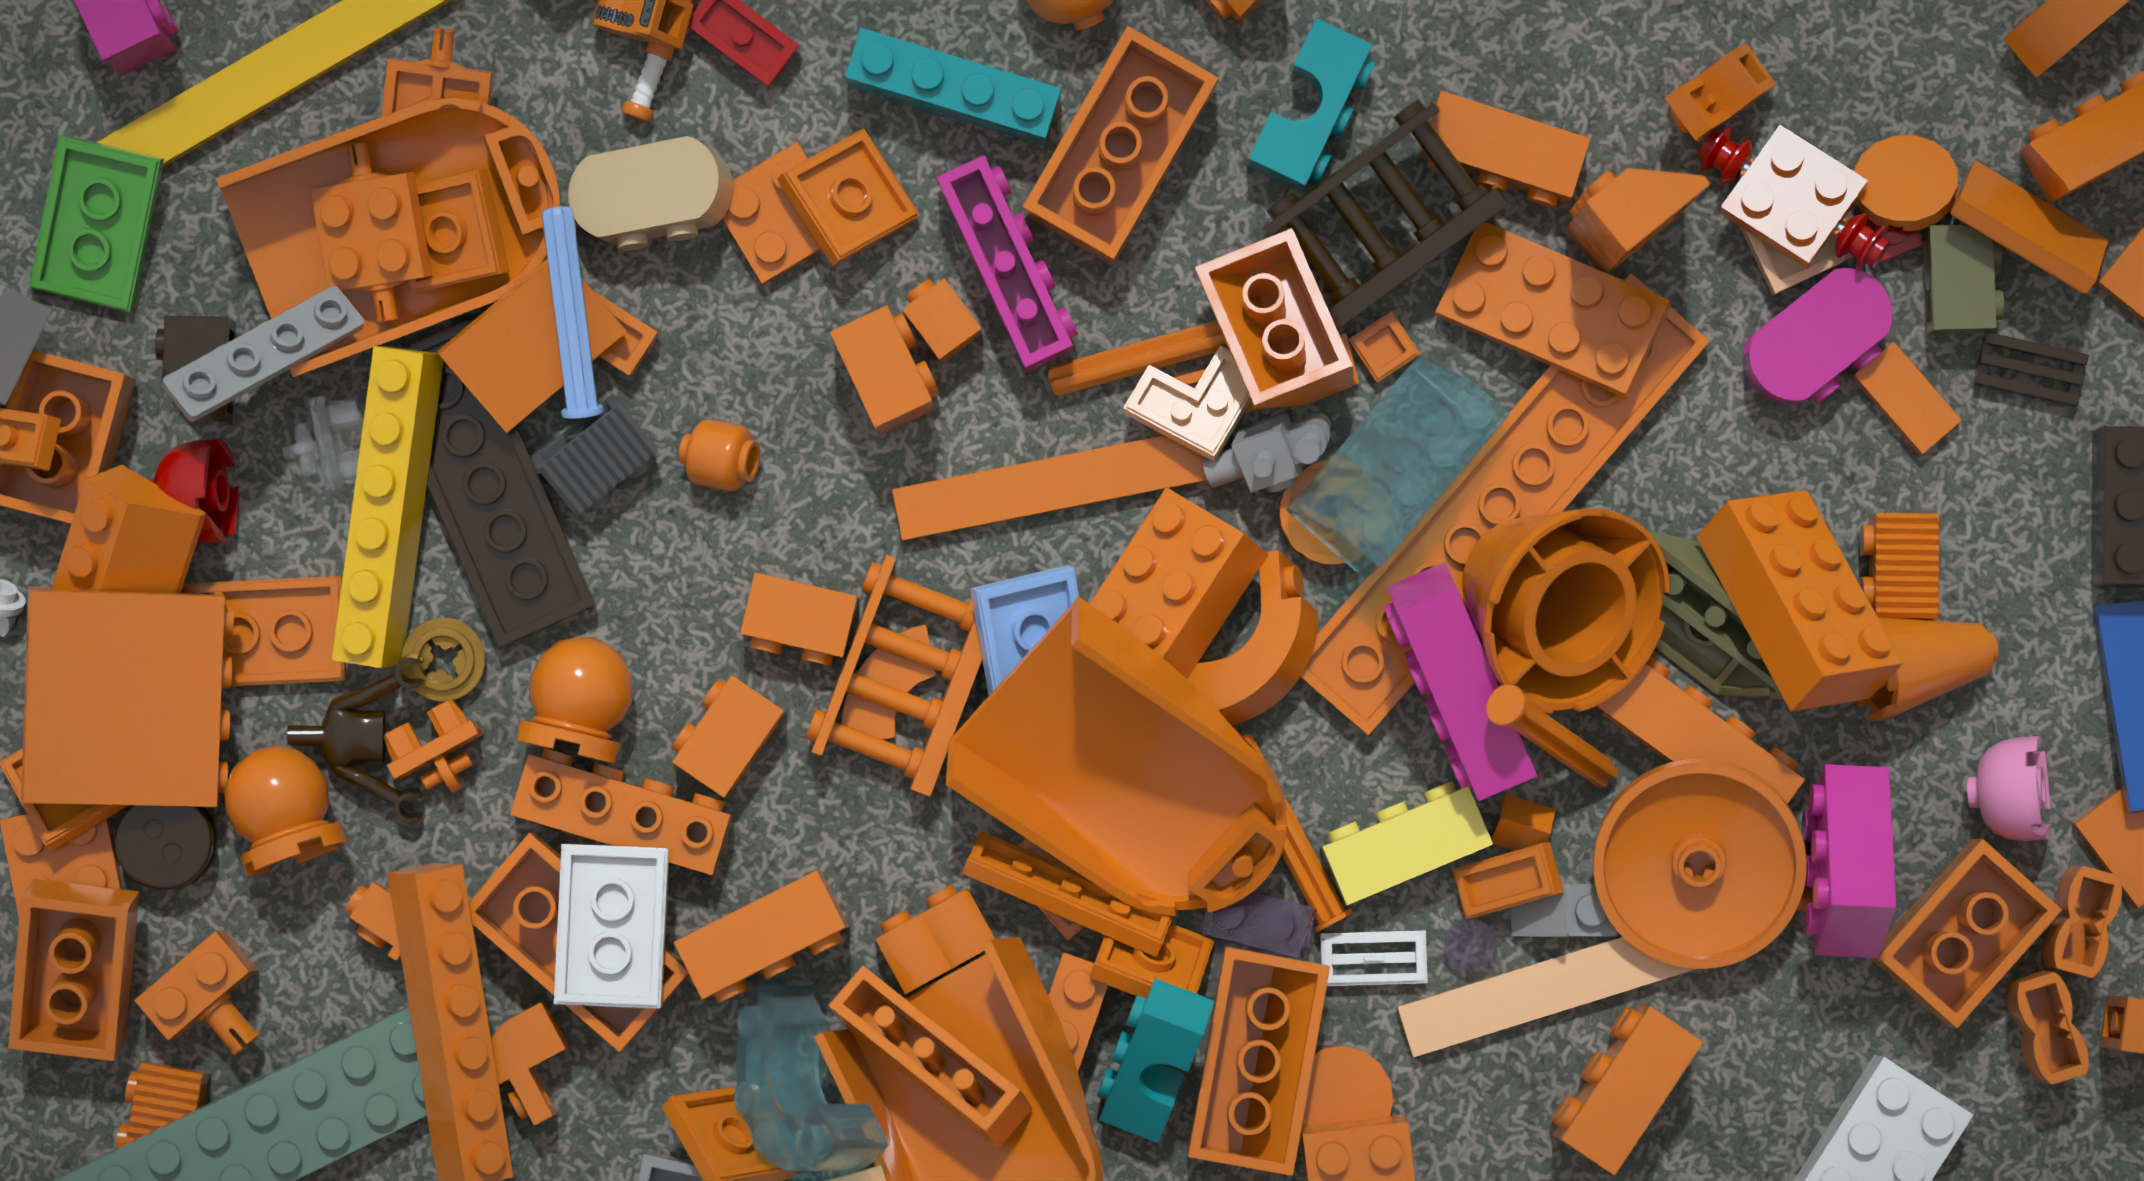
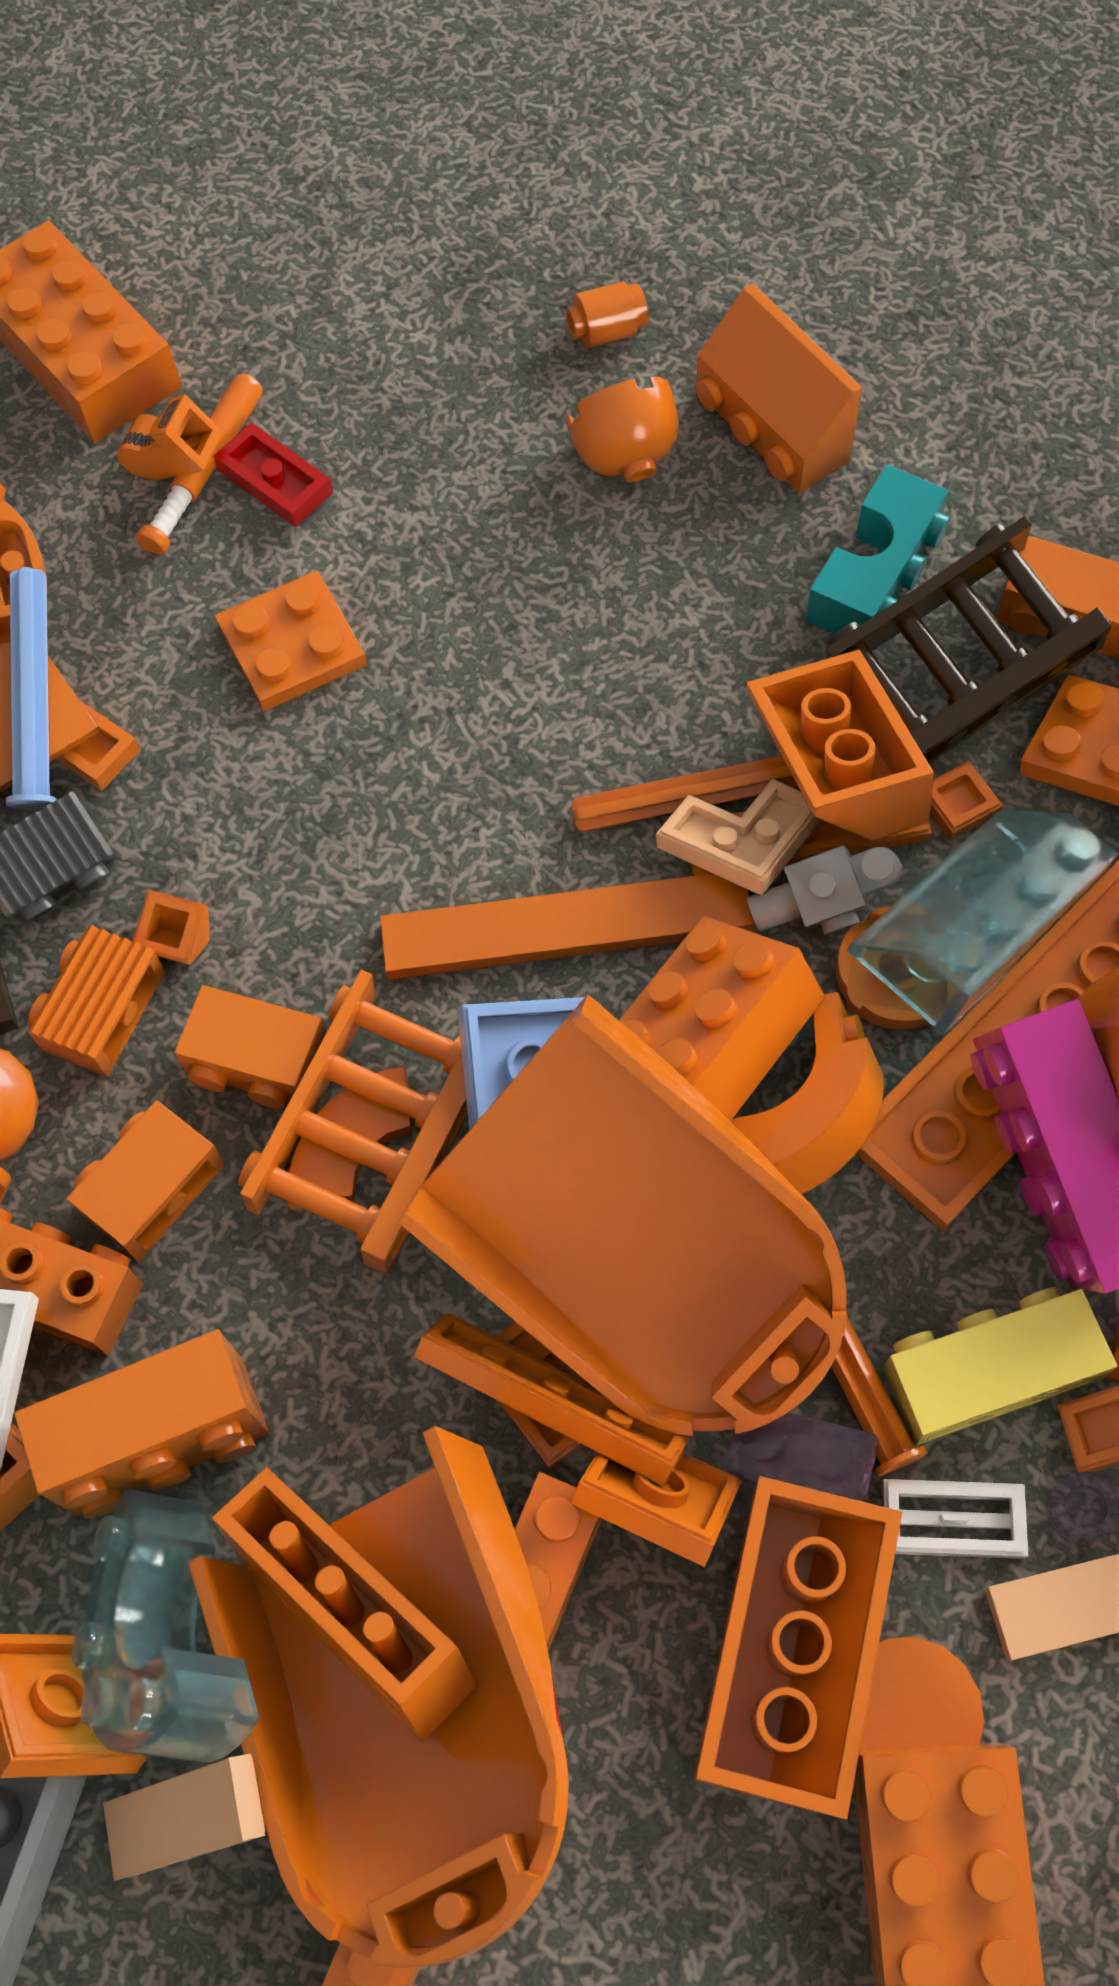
camera: 10 degrees right, 20 degrees down
(650, 192) = (149, 598): tan brick -> none
(661, 581) = (95, 1000): none -> orange brick
(715, 514) = (173, 927): none -> orange slope
(720, 455) = (186, 864): orange head -> none
(848, 197) = (364, 619): orange tile -> none
(883, 370) = (384, 775): orange brick -> none
(935, 939) = (367, 1451): orange brick -> none
(940, 319) = (455, 742): orange brick -> none
(953, 86) = (490, 521): teal brick -> none
(1005, 264) = (533, 686): dark pink brick -> none
(1120, 146) = (666, 578): orange brick -> none
(1167, 1032) = (673, 1586): teal arch -> none

